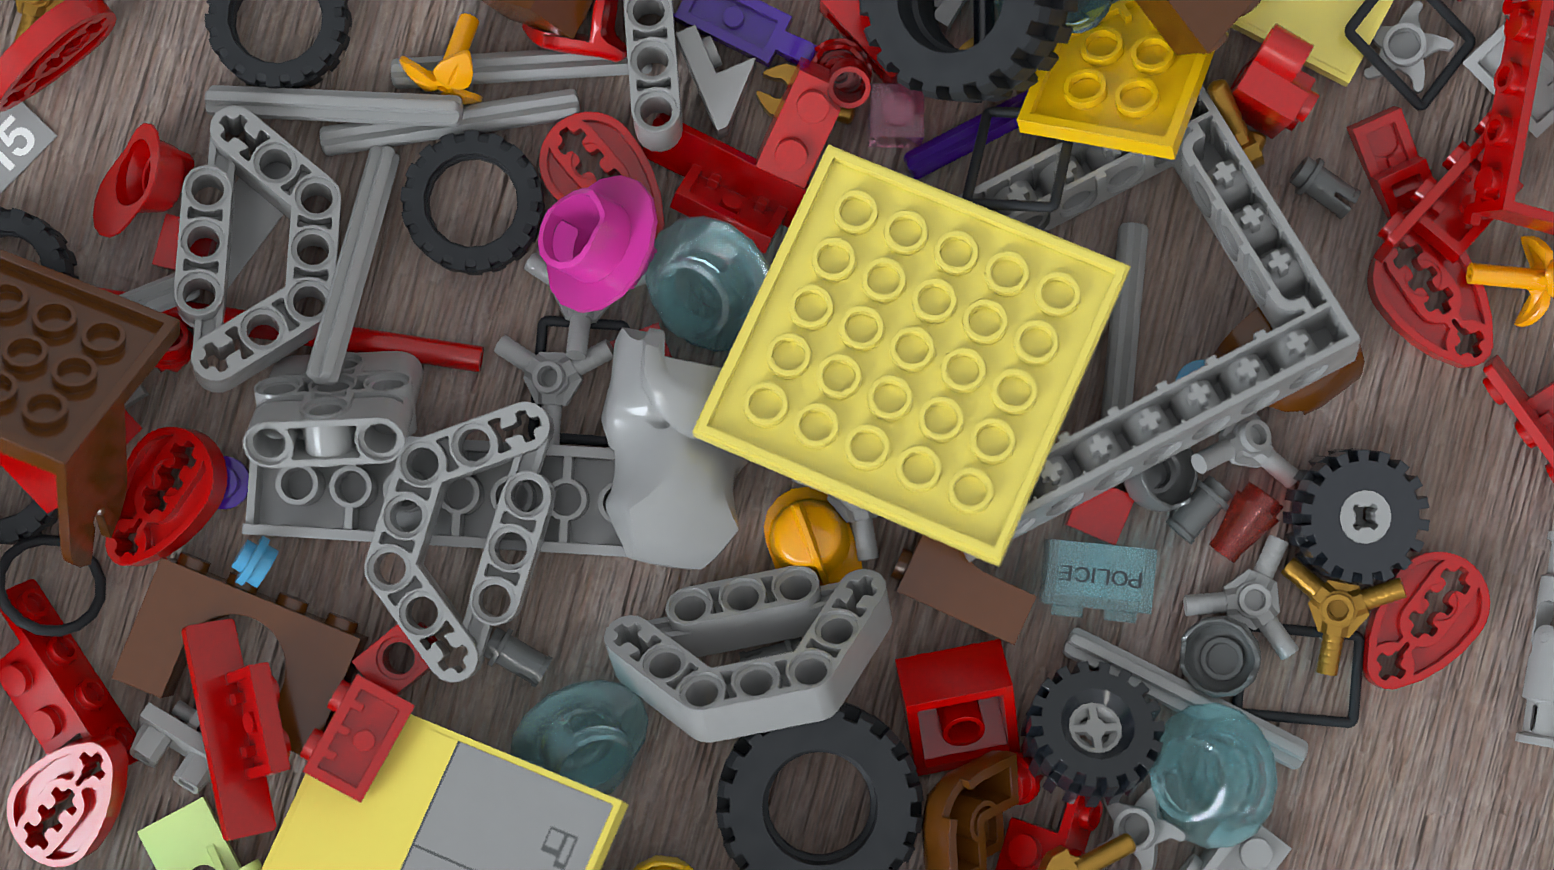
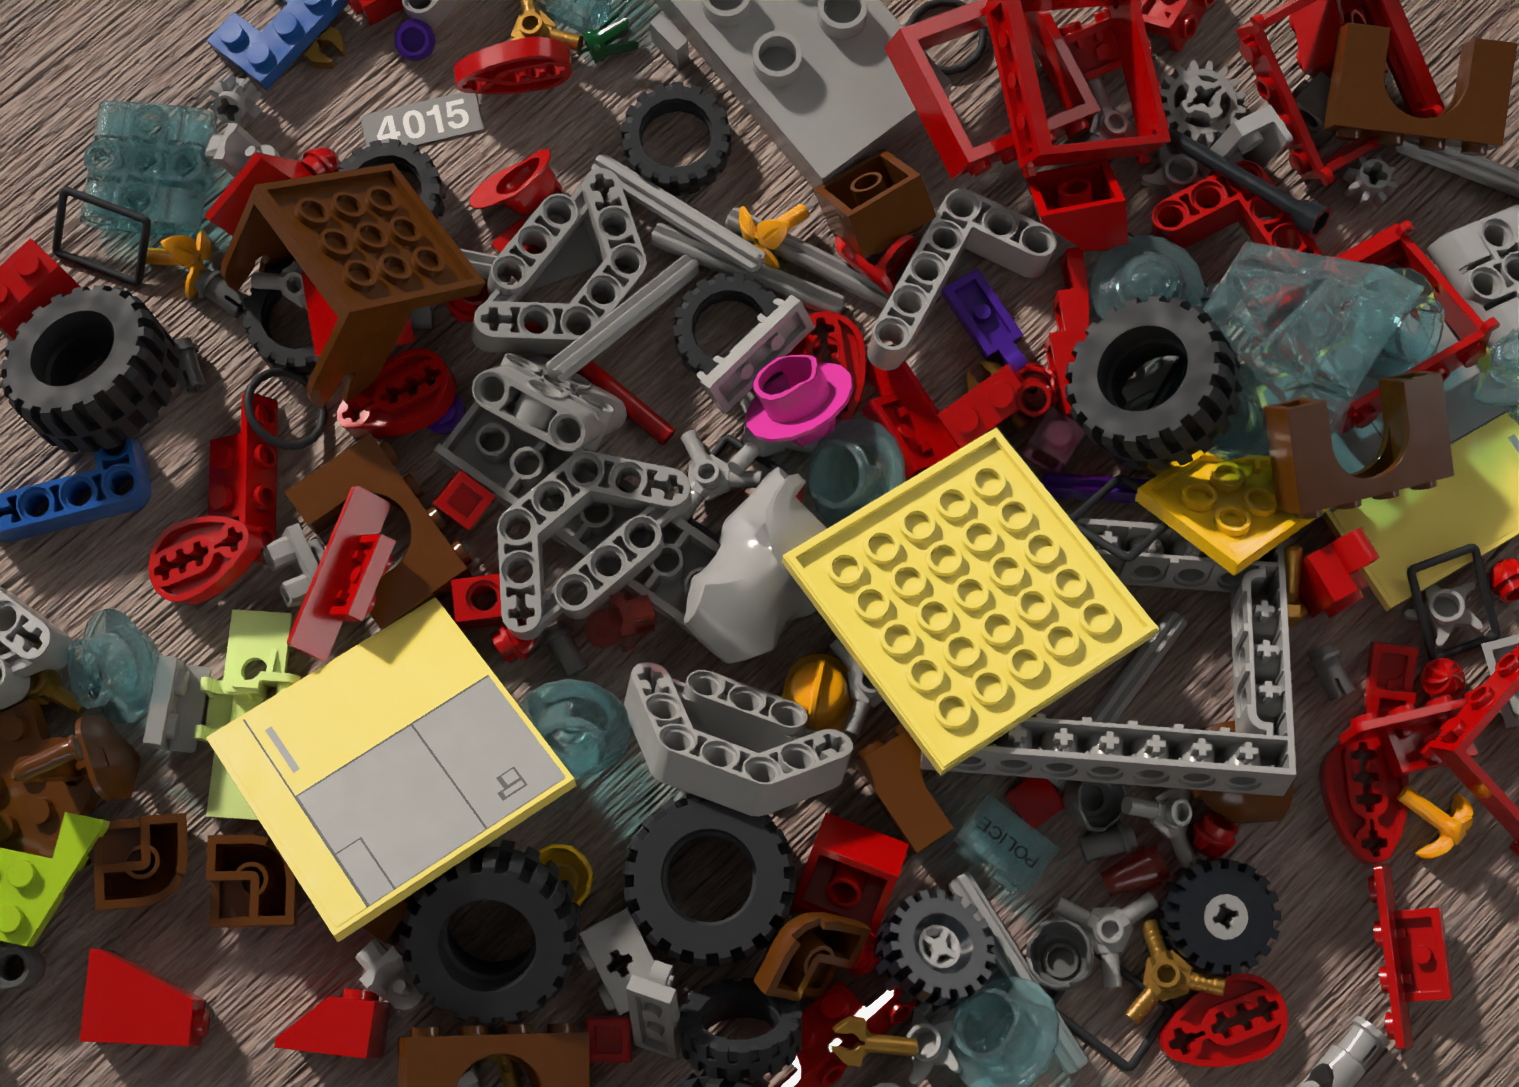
camera: 35 degrees right, 10 degrees down
(254, 561) = (430, 473): dark azure plate -> none
(307, 567) = (463, 499): none -> red brick
(357, 737) = (421, 629): red bracket -> none
(460, 692) = (510, 646): none -> red plate
(520, 215) = (767, 341): none -> light grey plate
(559, 594) = (622, 621): none -> clear red hips
(720, 91) = (944, 355): light grey slope -> none
(1303, 435) = (1213, 835): none -> red plate
(1443, 124) = (1442, 678): none -> red plate

